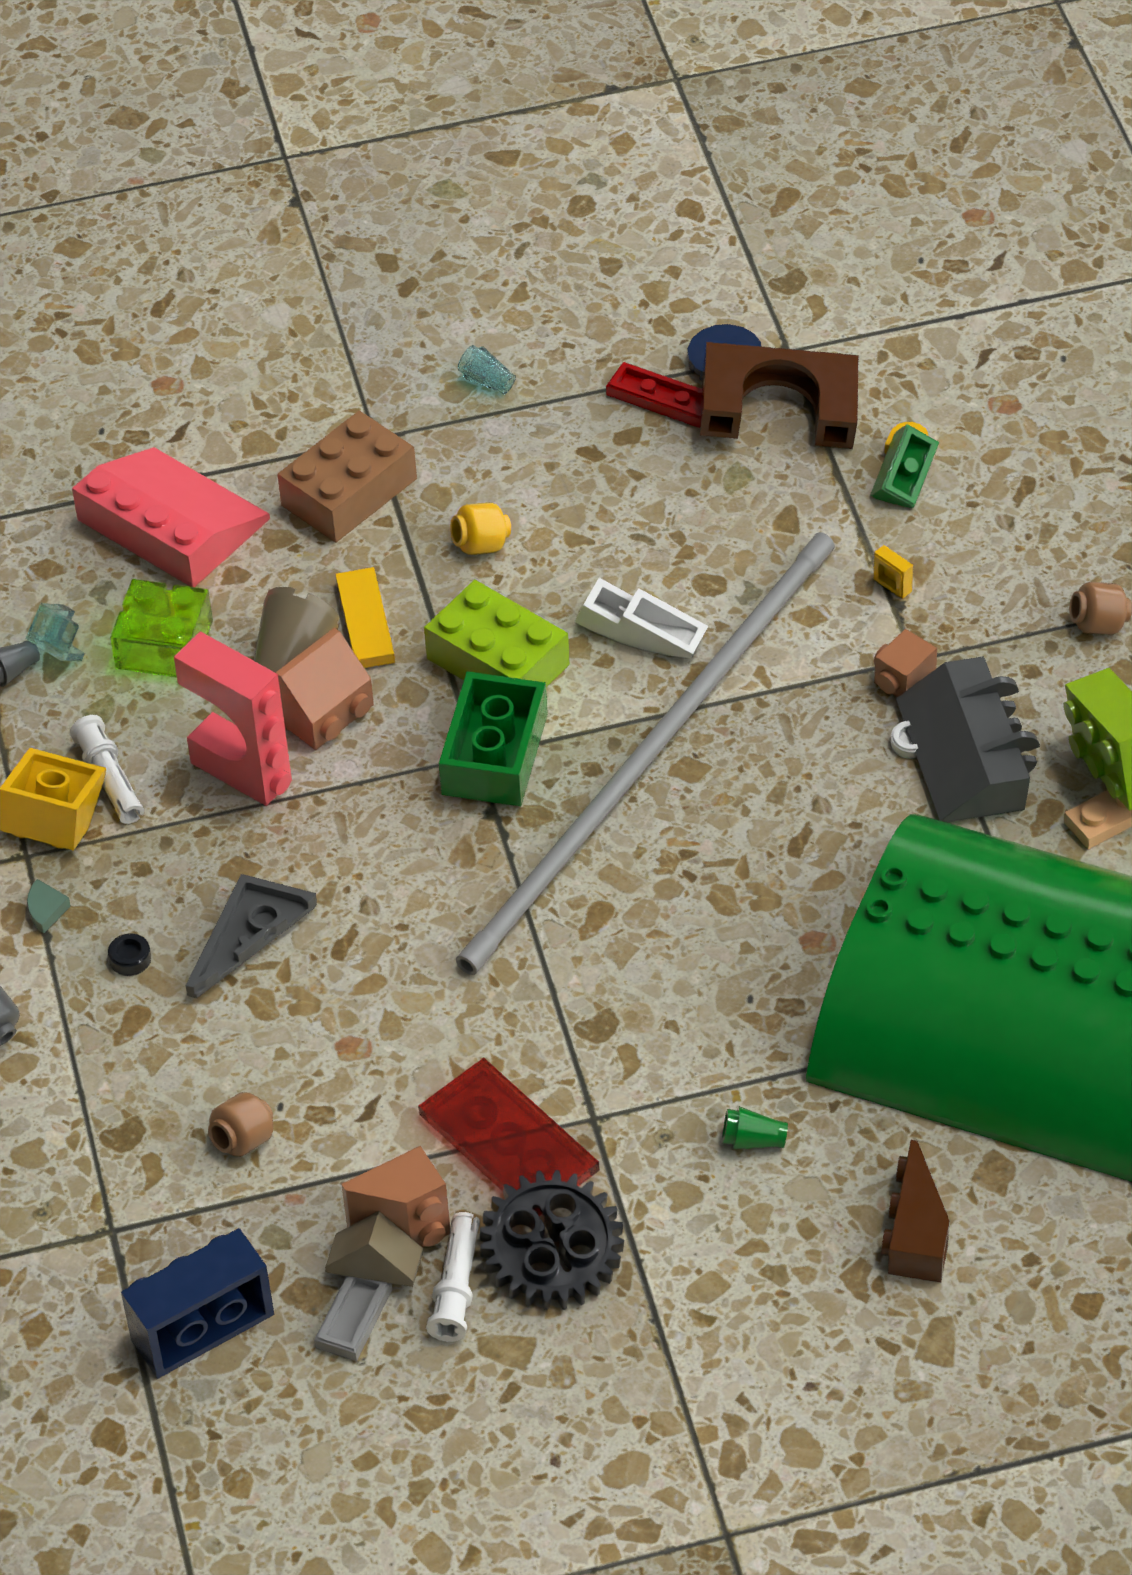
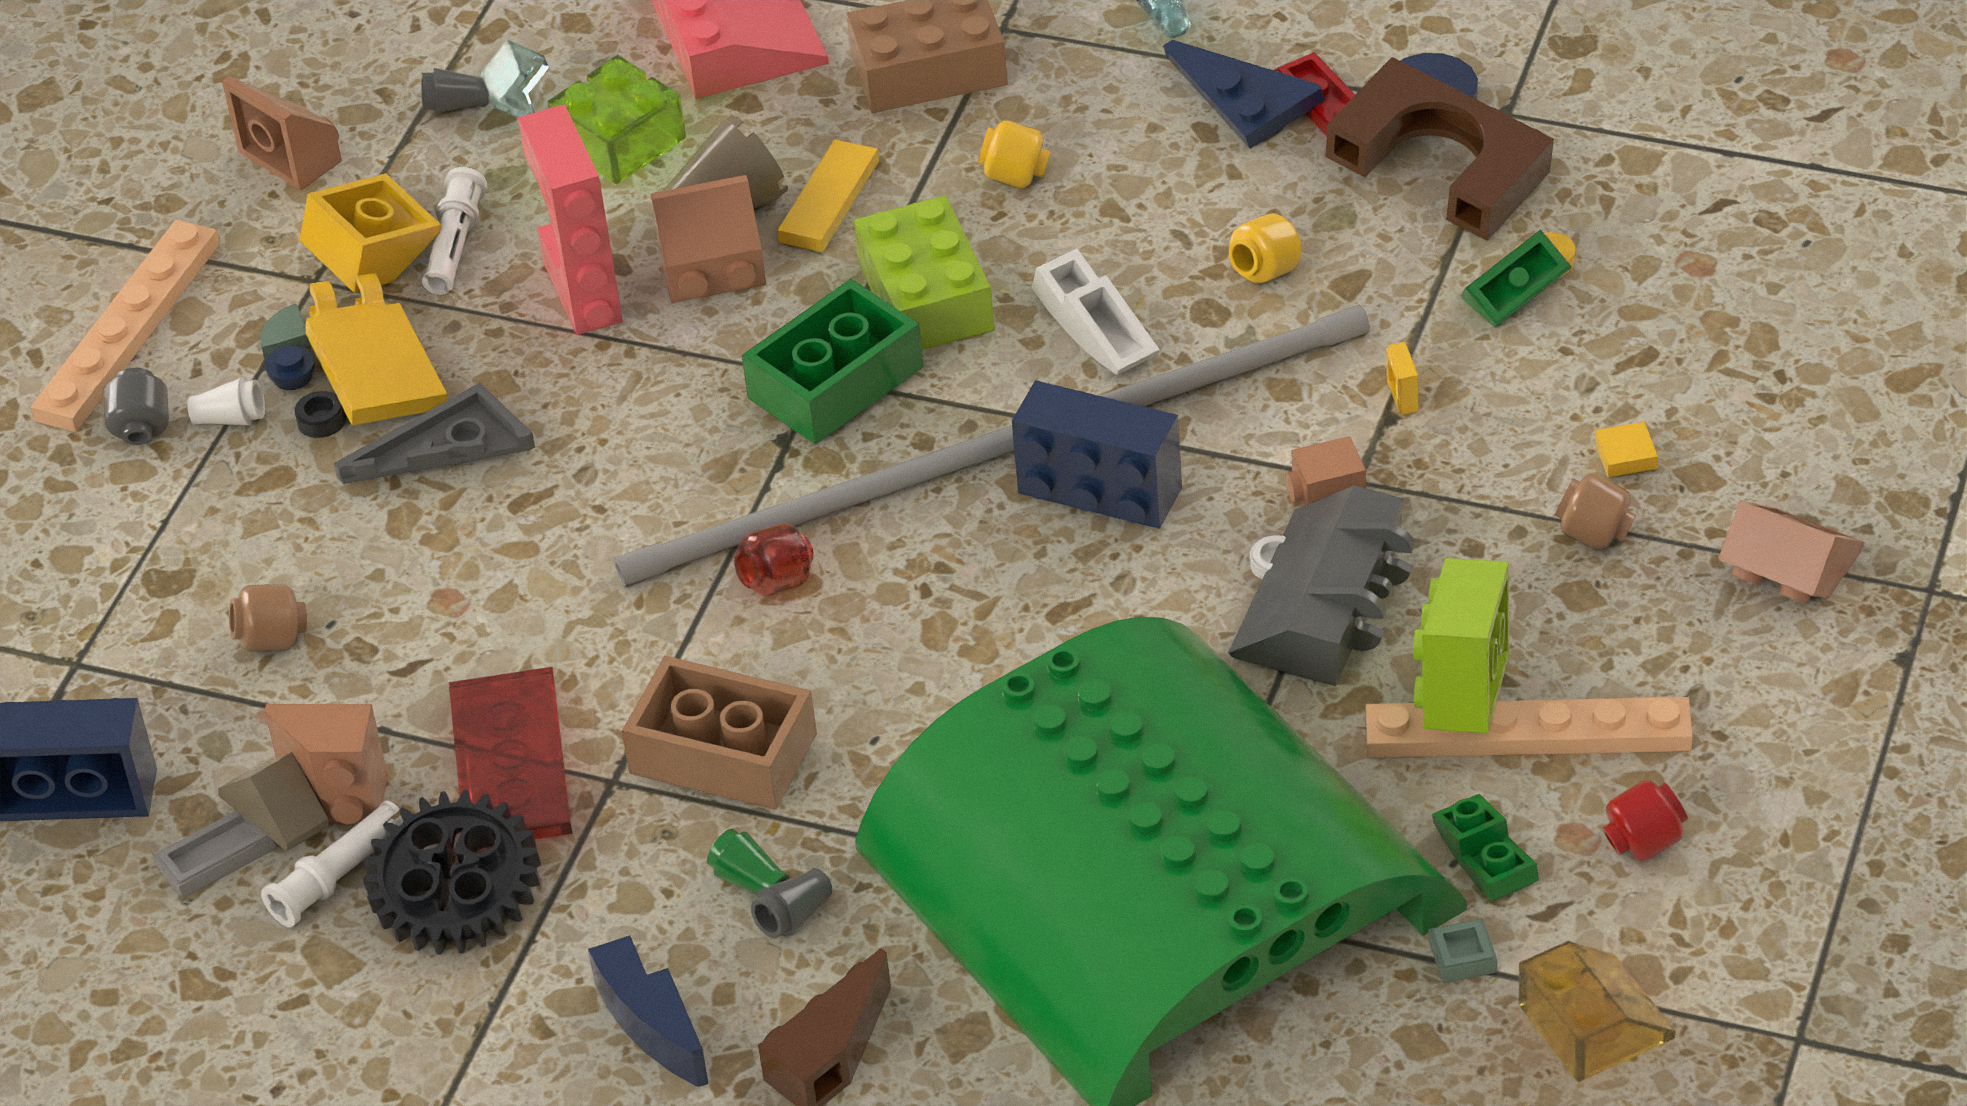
camera: 35 degrees right, 5 degrees down
(56, 979) = (229, 404): none -> white cone
(75, 929) = (290, 367): none -> dark blue plate
(133, 890) = (371, 354): none -> yellow tile
(576, 903) = (773, 559): none -> clear red head
(604, 414) = (1243, 94): none -> dark blue wing
(657, 1044) = (720, 732): none -> medium nougat brick
(719, 520) = (1265, 248): none -> yellow head
(746, 720) = (1097, 454): none -> dark blue brick
(780, 1265) = (648, 1009): none -> dark blue slope
(805, 1142) = (789, 903): none -> dark grey cone
(1075, 555) = (1626, 449): none -> yellow tile

